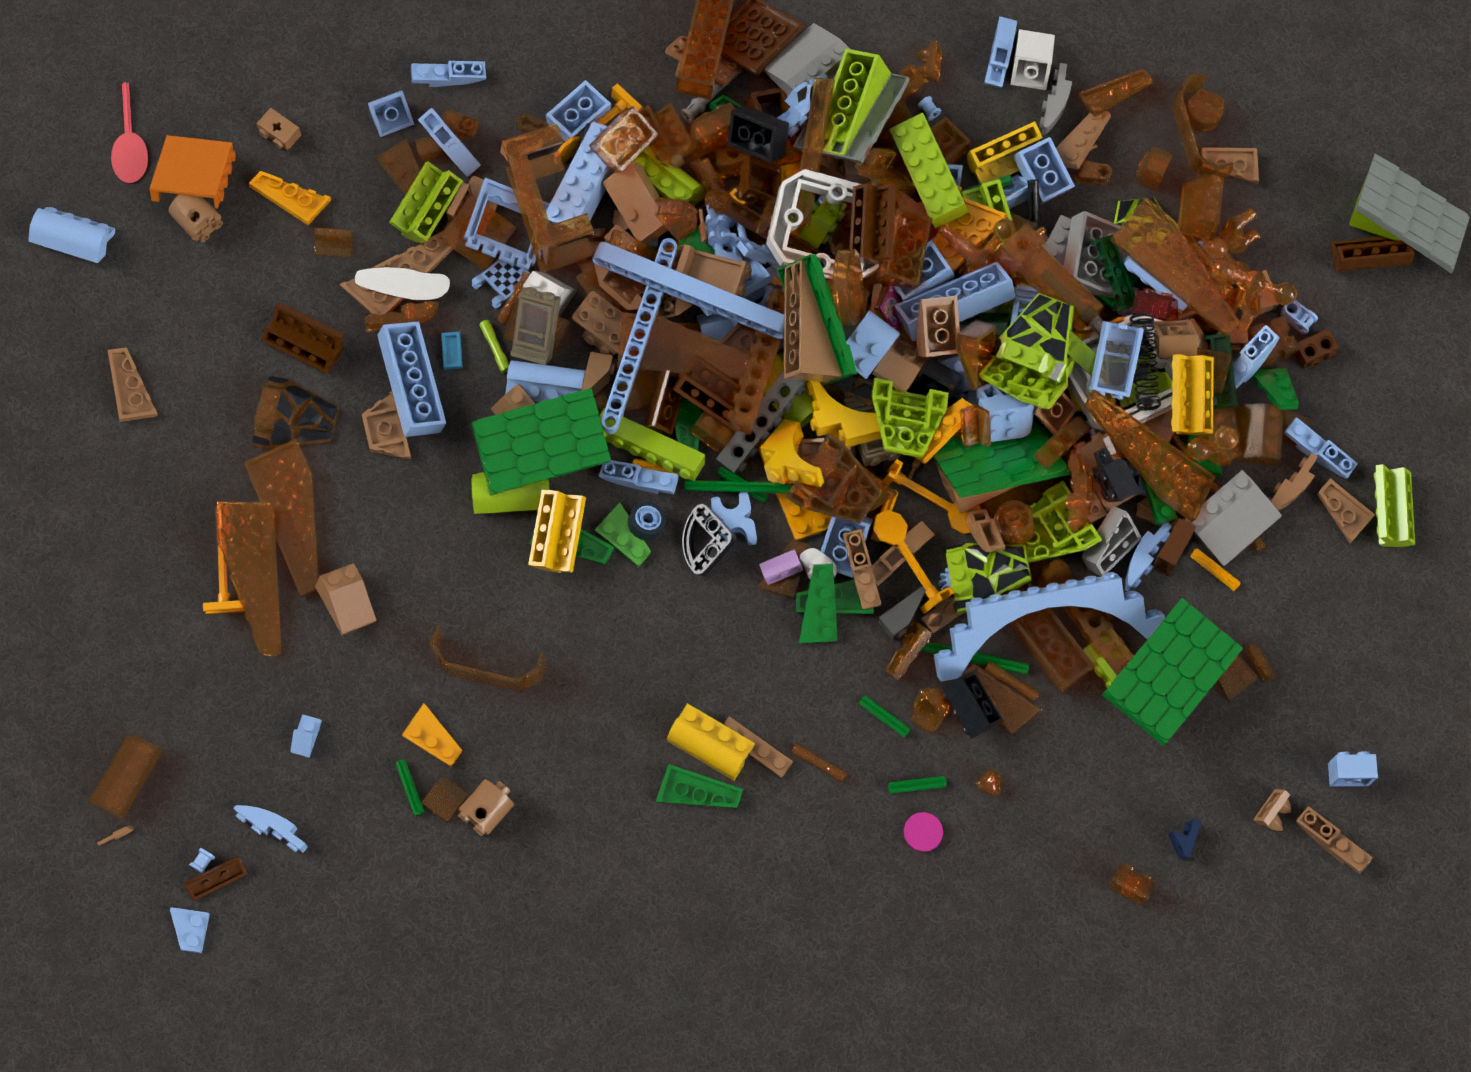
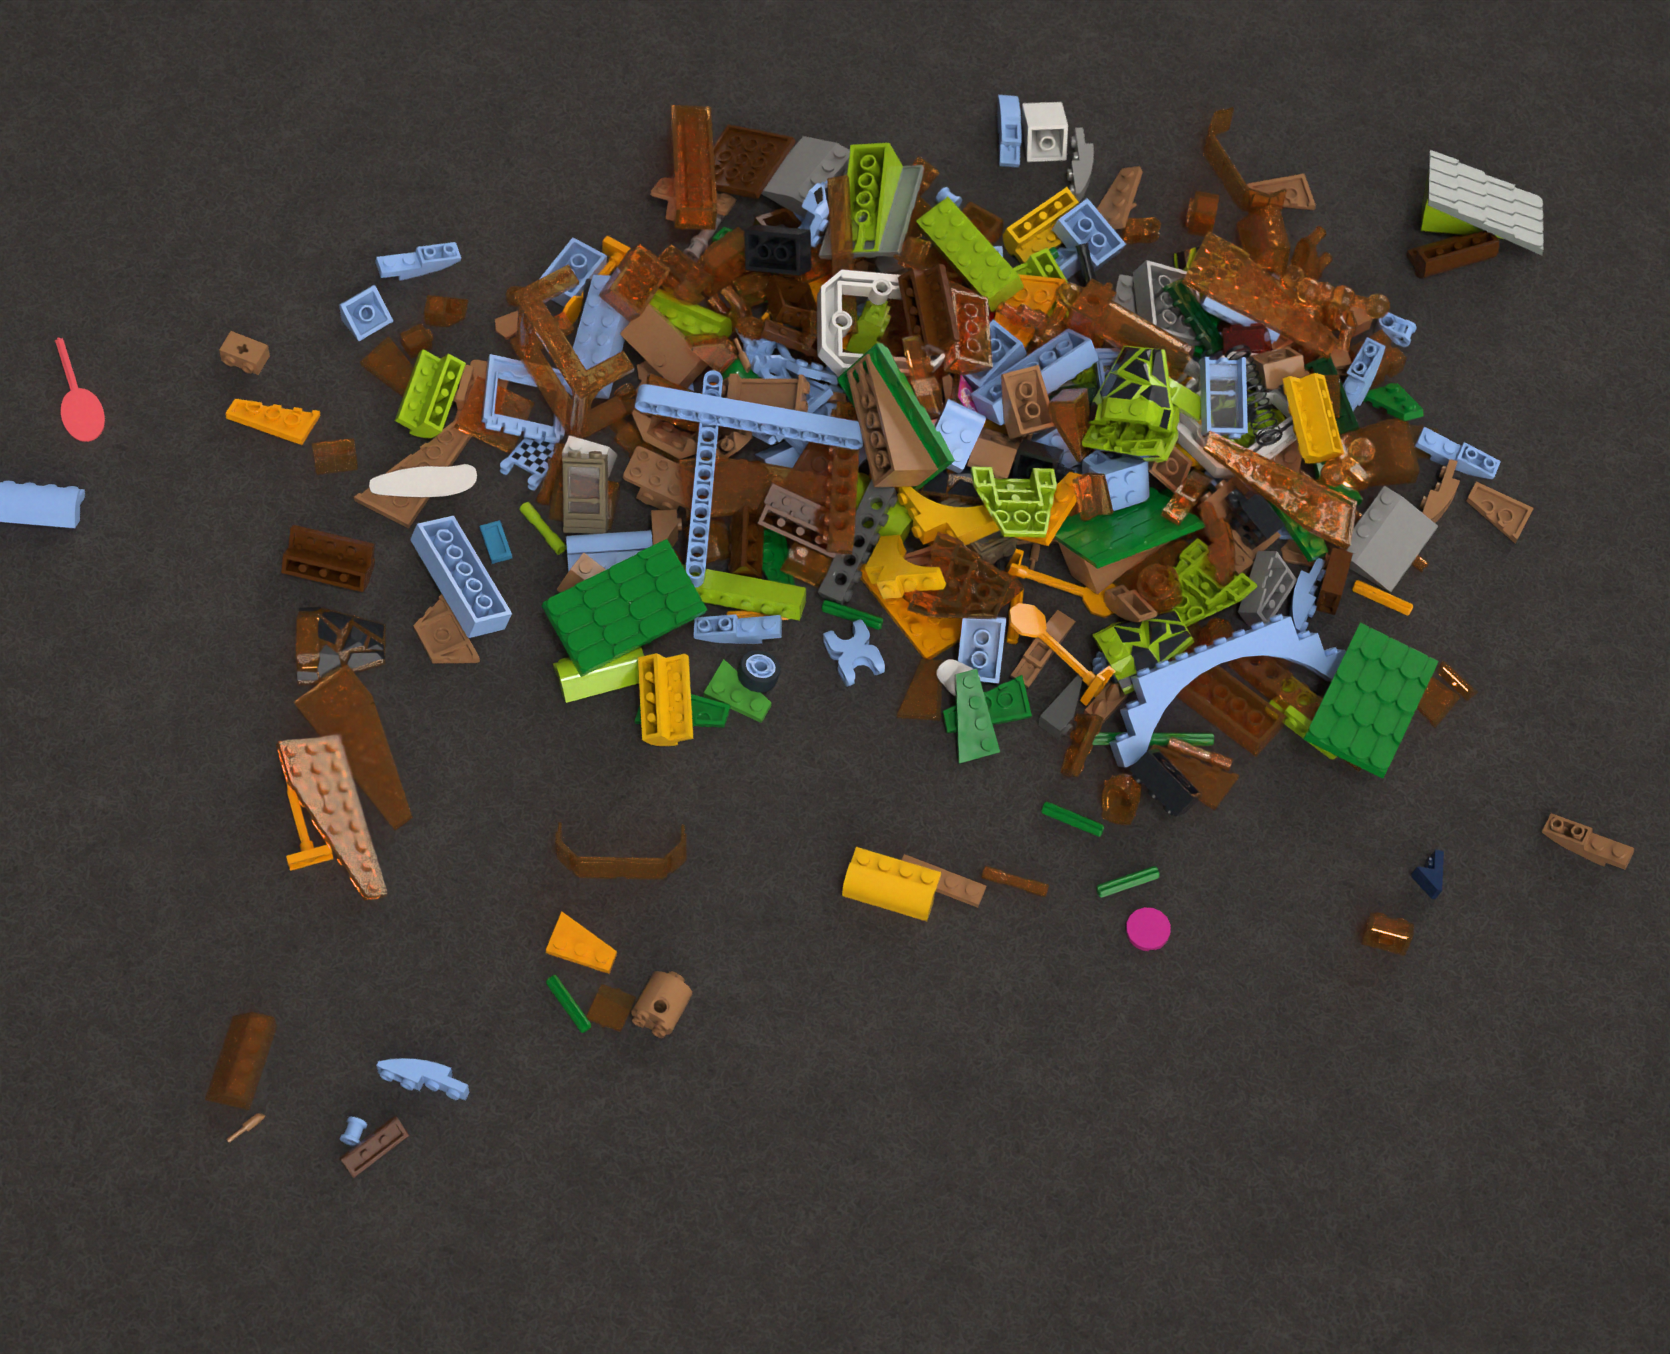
camera: 15 degrees left, 10 degrees down
(130, 394) = (142, 651): medium nougat wing -> none
(190, 928) = (357, 1208): light blue wing -> none
(193, 168) = (160, 407): orange panel -> none
(195, 216) = (174, 455): medium nougat cylinder -> none
(305, 736) = (436, 974): light blue slope -> none
(346, 598) = (446, 818): medium nougat slope -> none
(409, 313) = (452, 506): clear orange slope -> none
(449, 142) = (440, 328): light blue slope -> none
(695, 789) = (890, 937): green wing -> none
(717, 542) = (843, 675): beam -> none
(735, 486) = (849, 615): green axle -> none
(781, 567) = (919, 688): lavender panel -> none
(861, 569) = (1008, 668): medium nougat slope -> none
(933, 56) = (936, 146): clear orange tile -> none
(990, 783) = (1206, 862): clear orange brick -> none
(1113, 92) = (1137, 148): clear orange wing -> none
(1205, 111) = (1241, 146): clear orange brick -> none
(1275, 803) = (1515, 818): medium nougat tile -> none
(1313, 346) = (1421, 355): reddish brown brick -> none
(1353, 769) = (1587, 765): light blue brick -> none
(1394, 507) = (1551, 496): lime brick -> none

